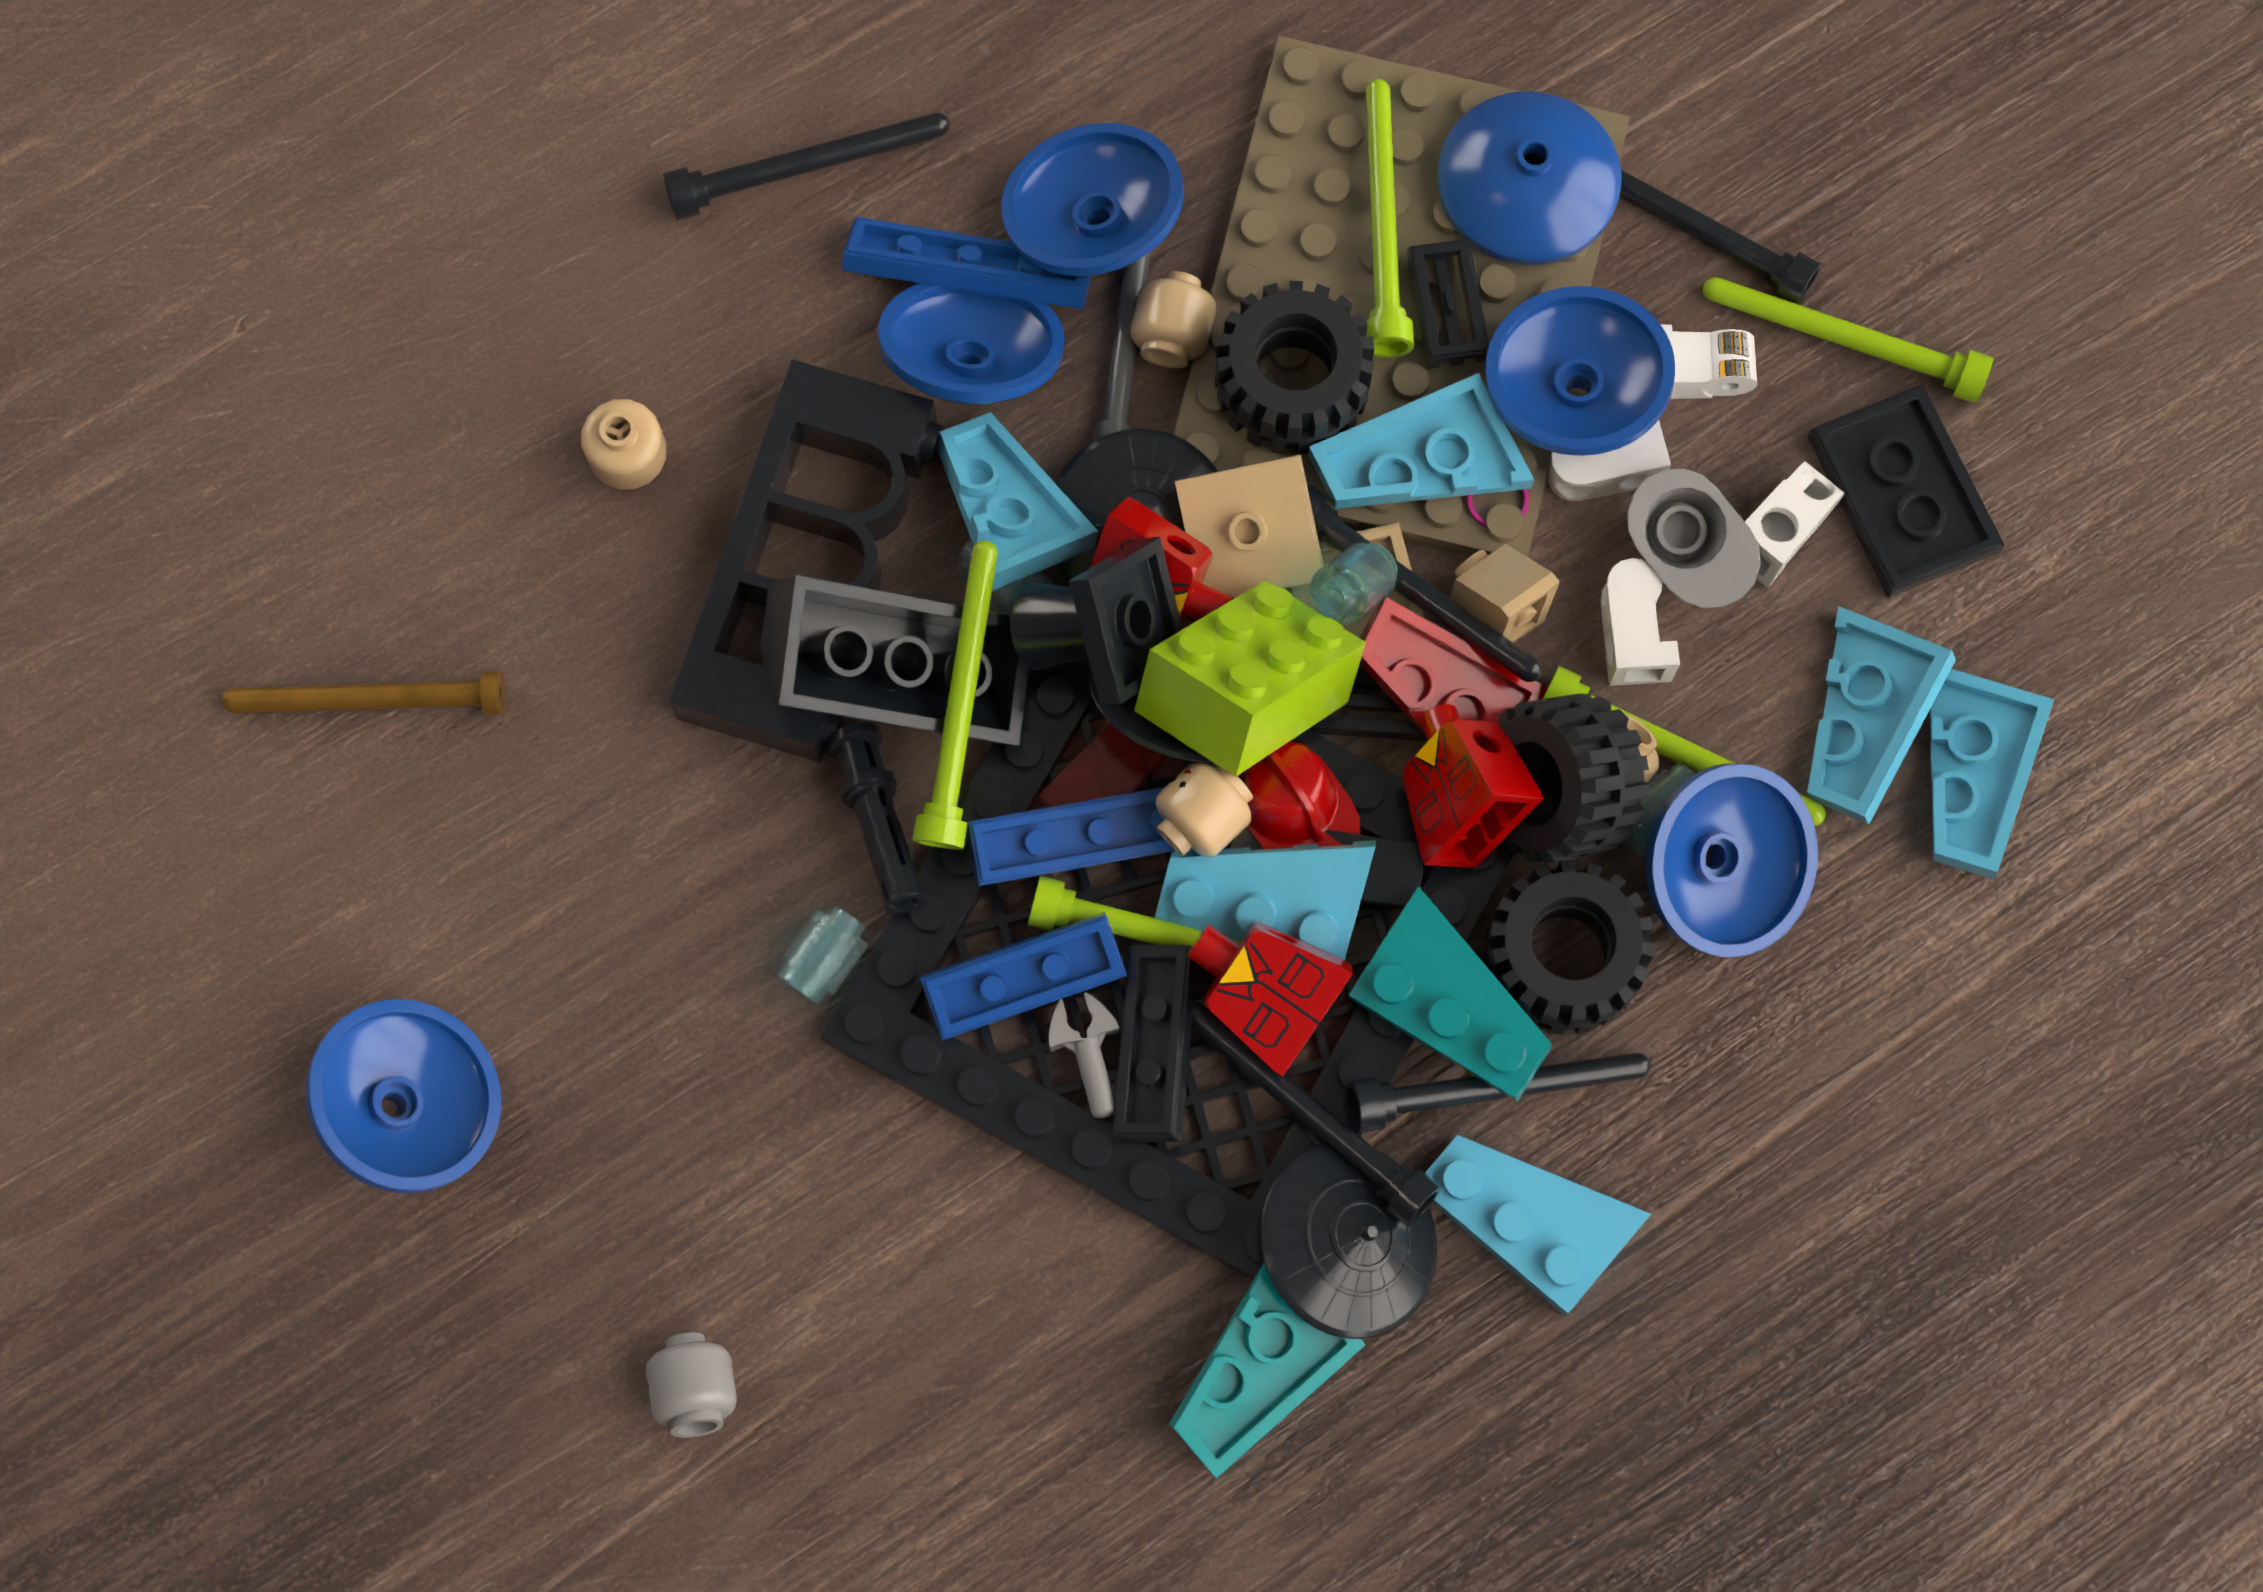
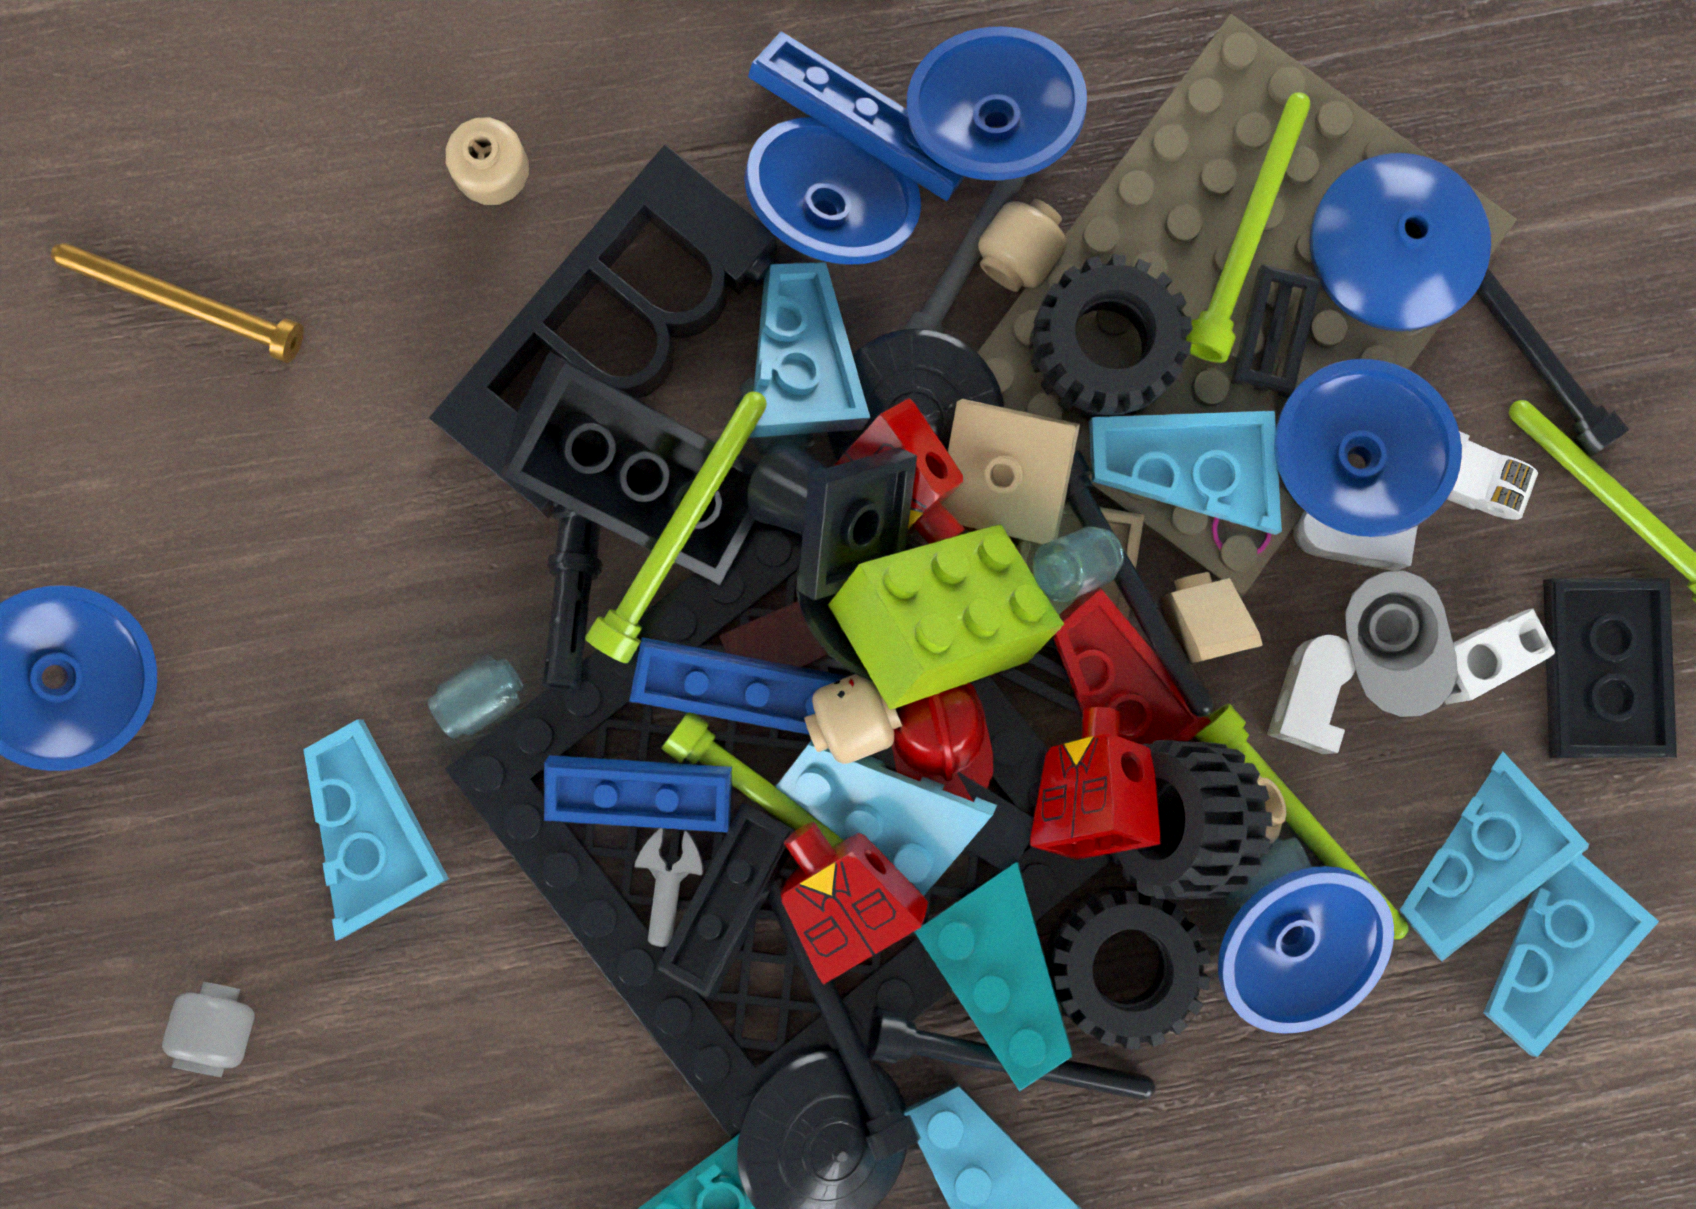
camera: 15 degrees right, 10 degrees up
(769, 1128) = (367, 830): none -> medium azure wing

